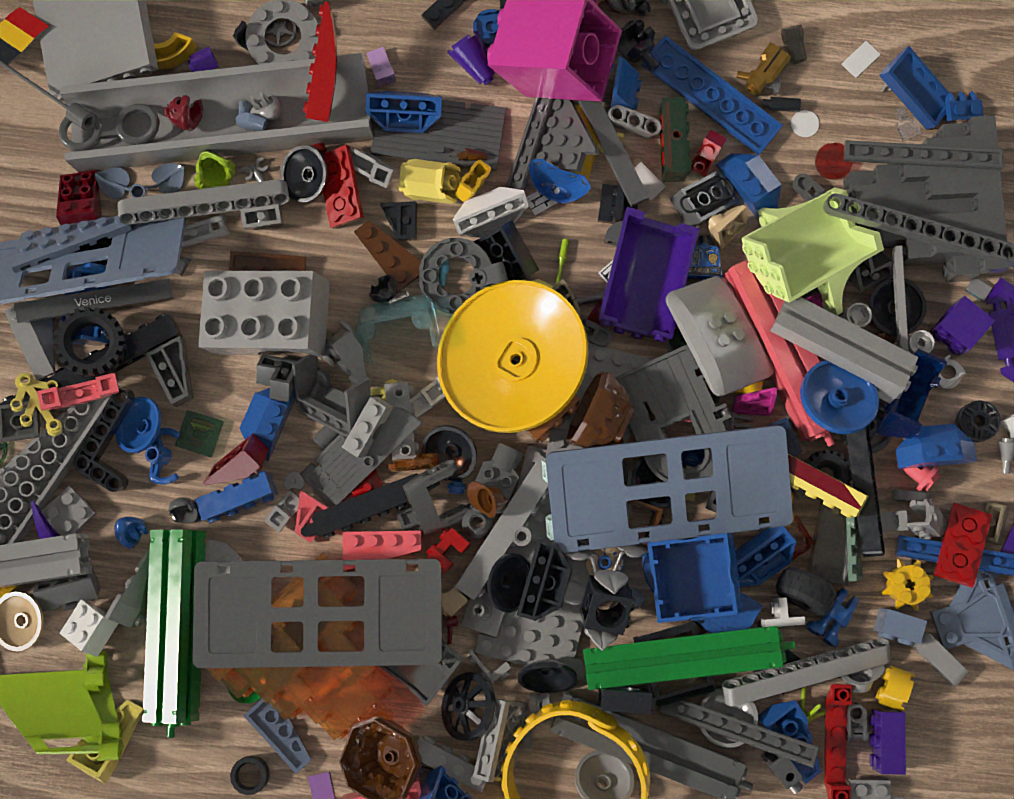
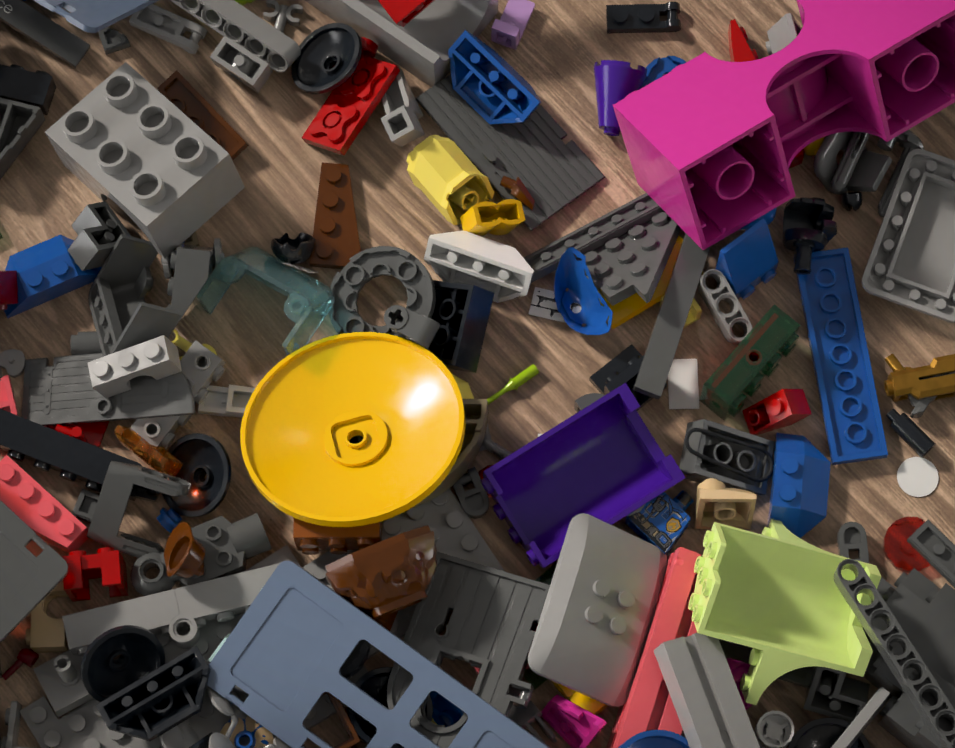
camera: 35 degrees right, 10 degrees down
(402, 219) = (384, 194): black wing -> none
(443, 272) = (375, 285): medium azure piece -> none

